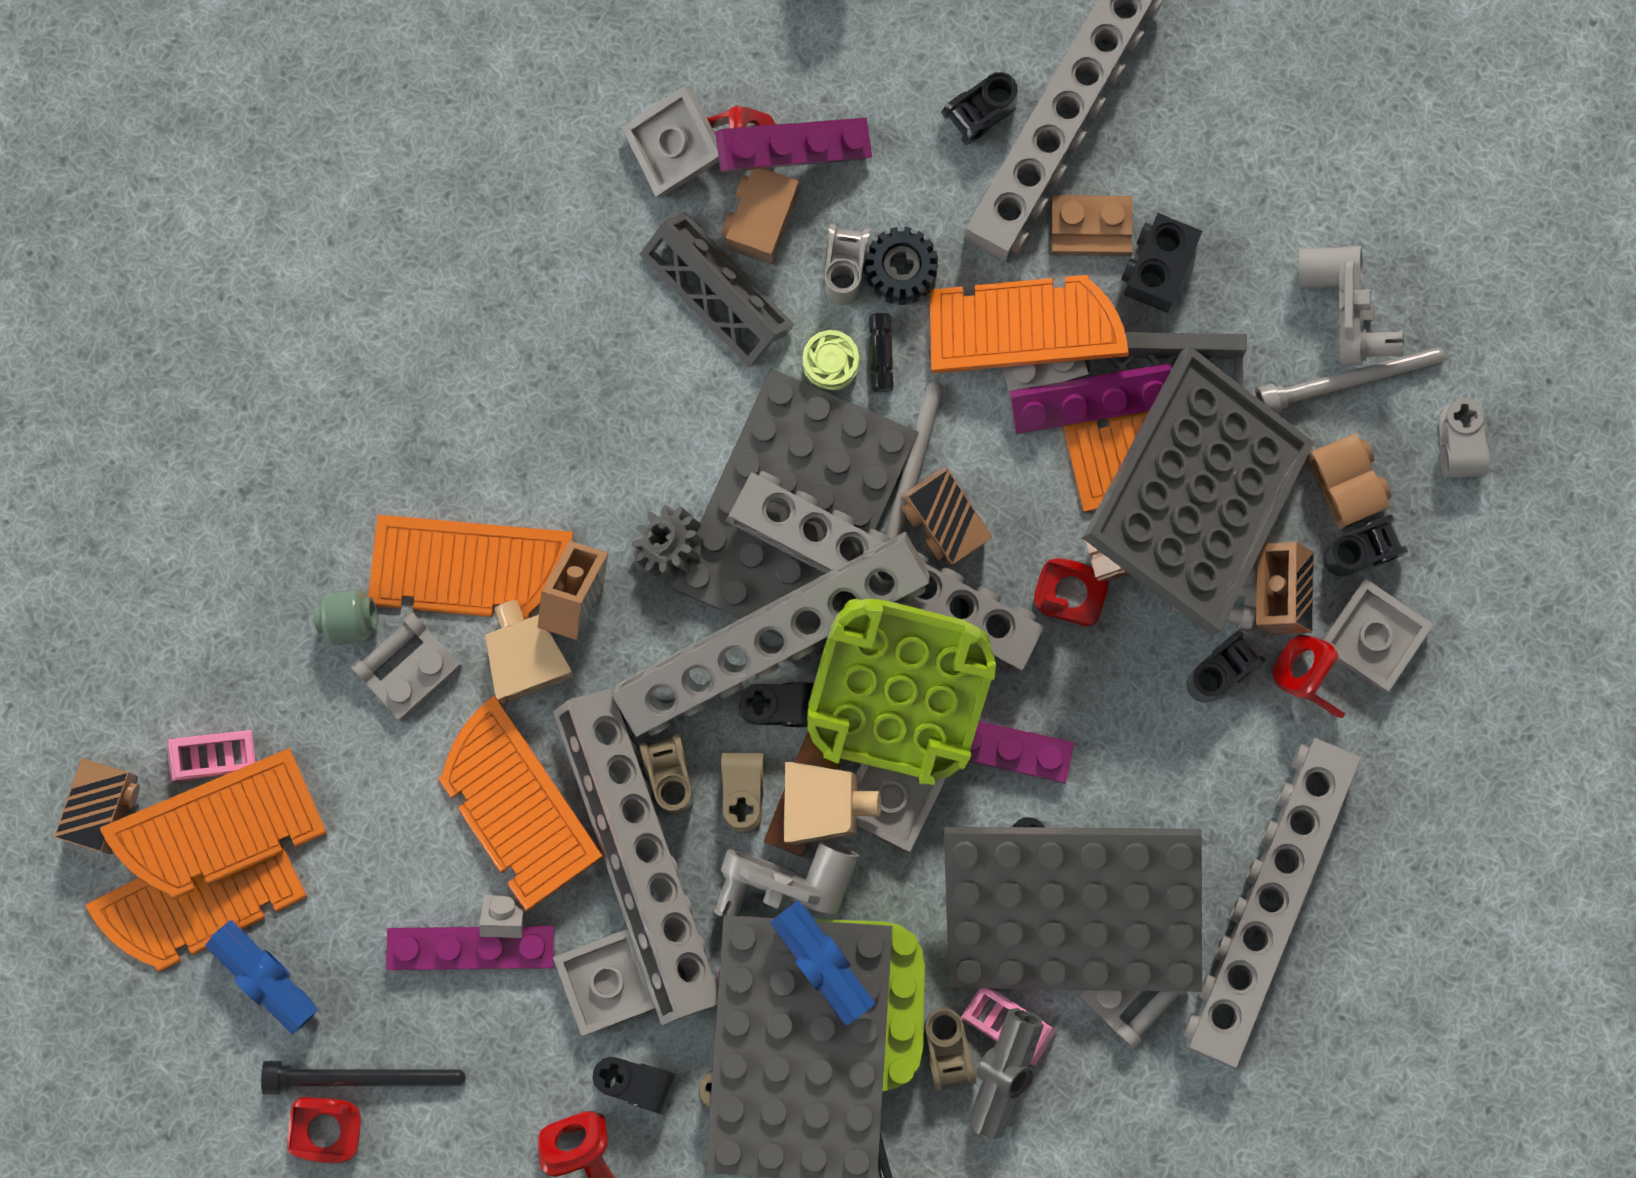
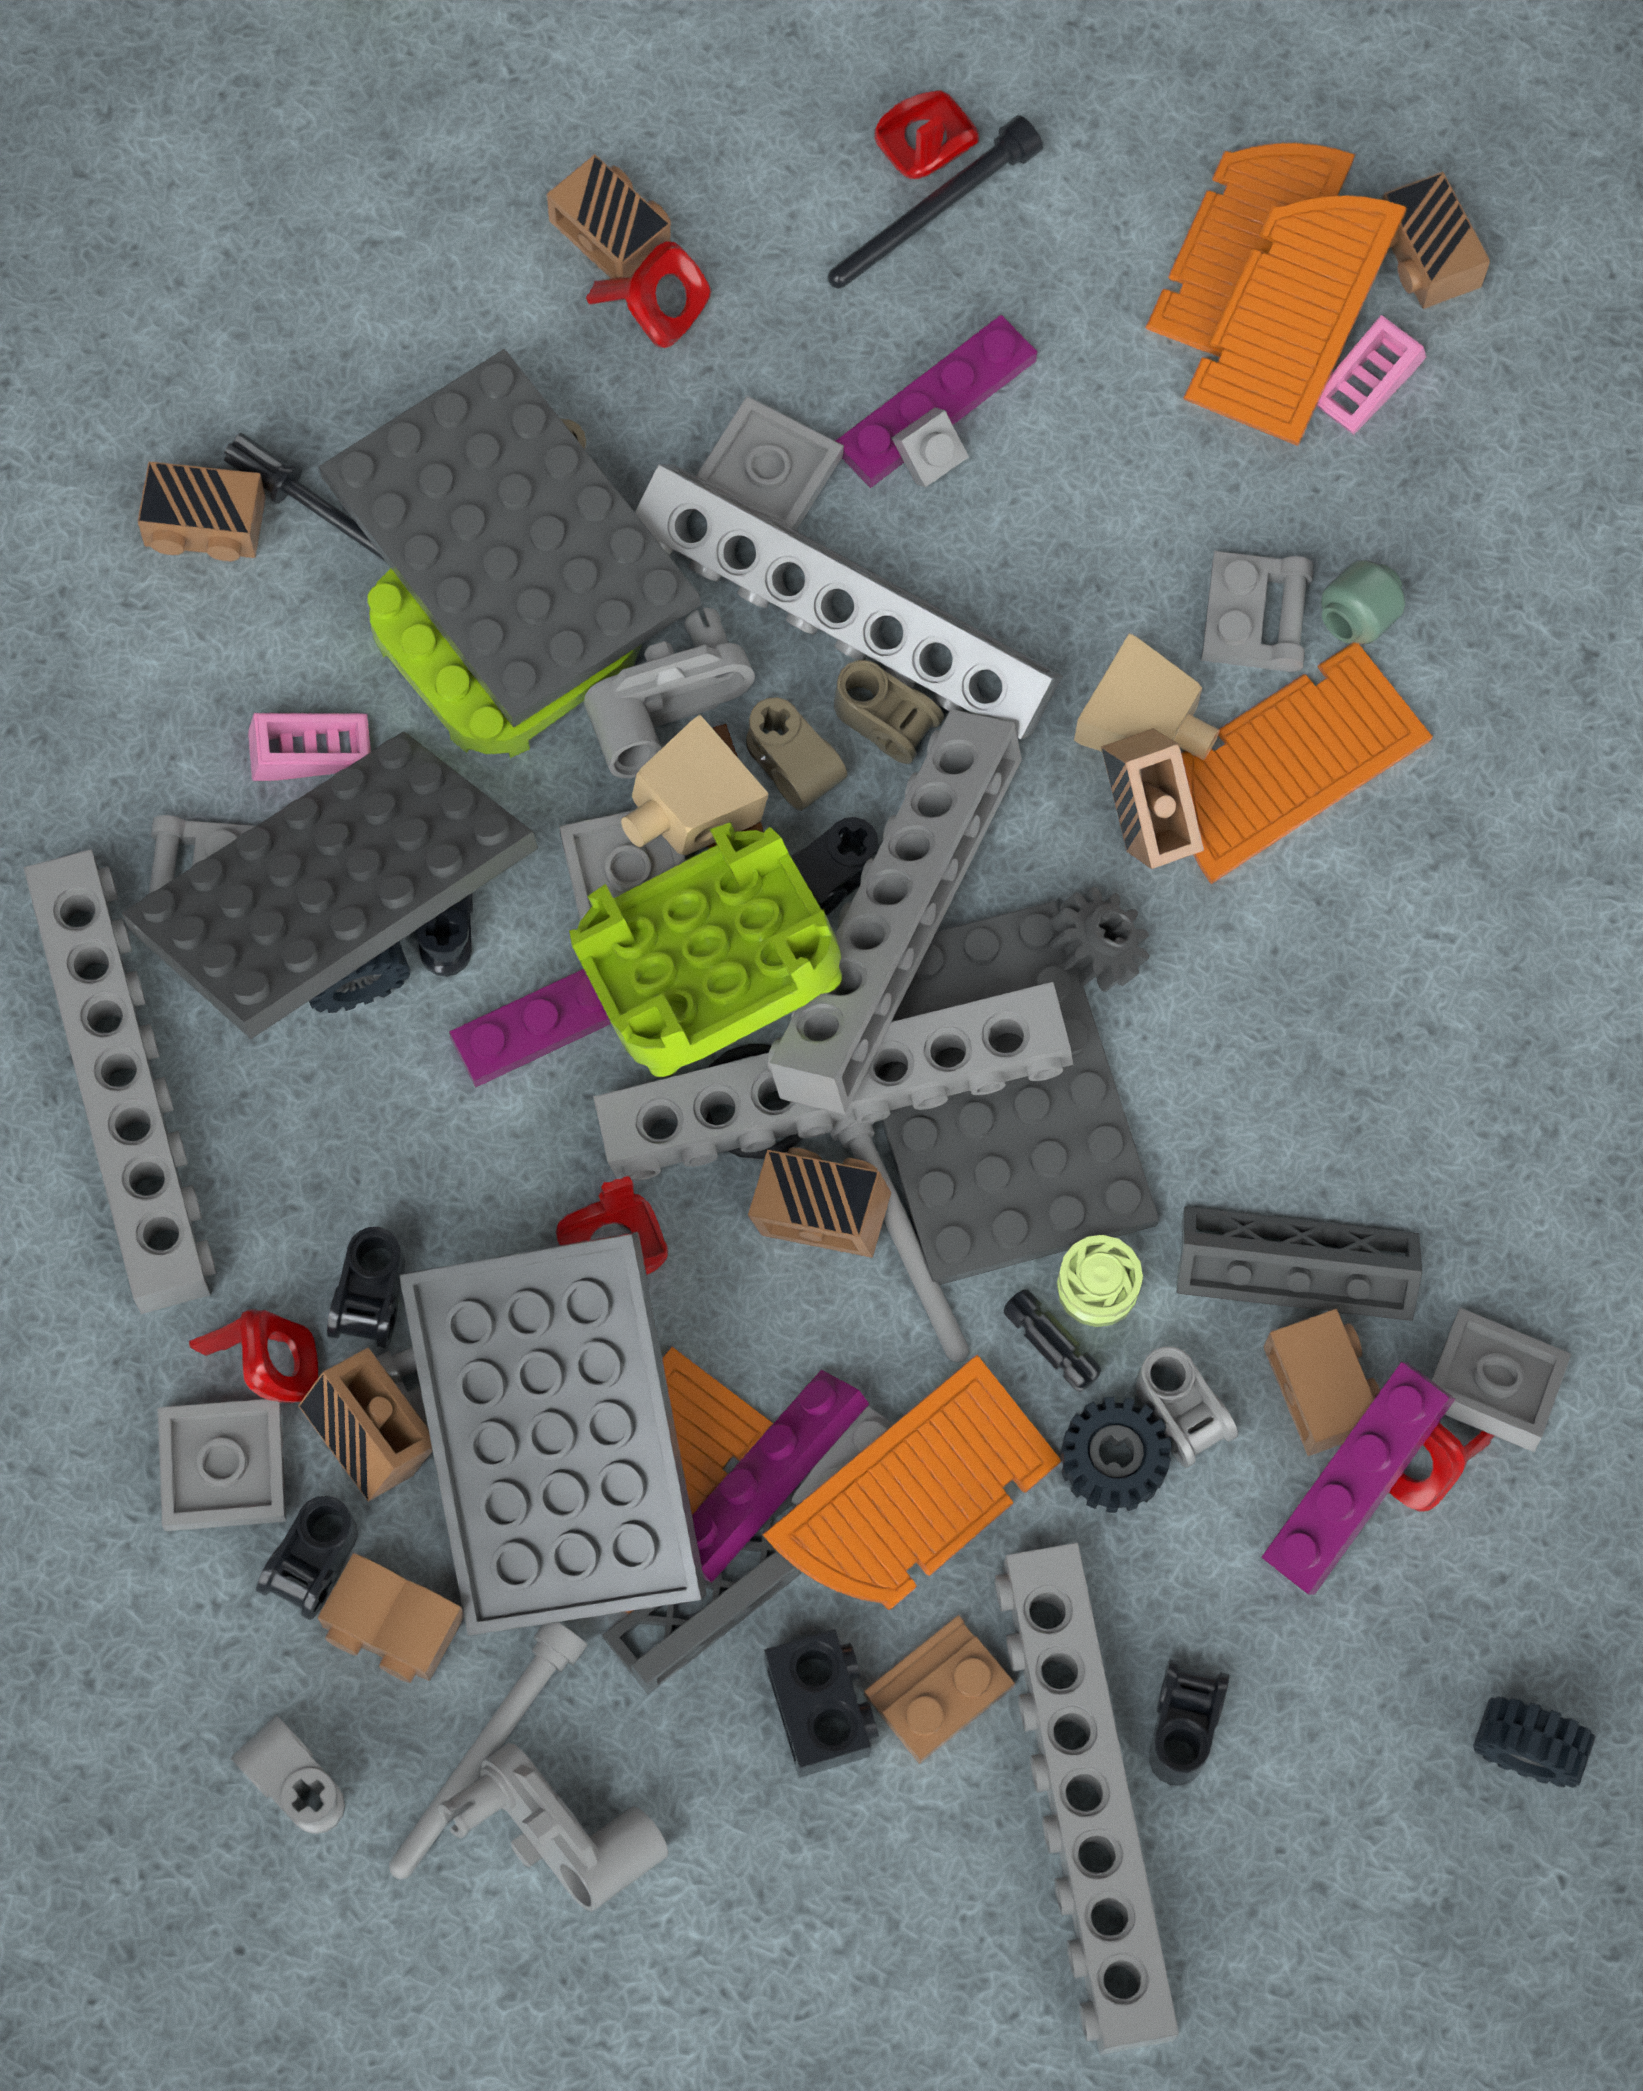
camera: 135 degrees right, 10 degrees down
(262, 977) = (1117, 213): blue piece -> none
(515, 807) = (1014, 560): orange piece -> none
(642, 1084) = (651, 395): black piece -> none
(822, 963) = (552, 611): blue piece -> none
(949, 1053) = (349, 662): dark tan piece -> none
(1005, 1073) = (271, 678): dark grey piece -> none

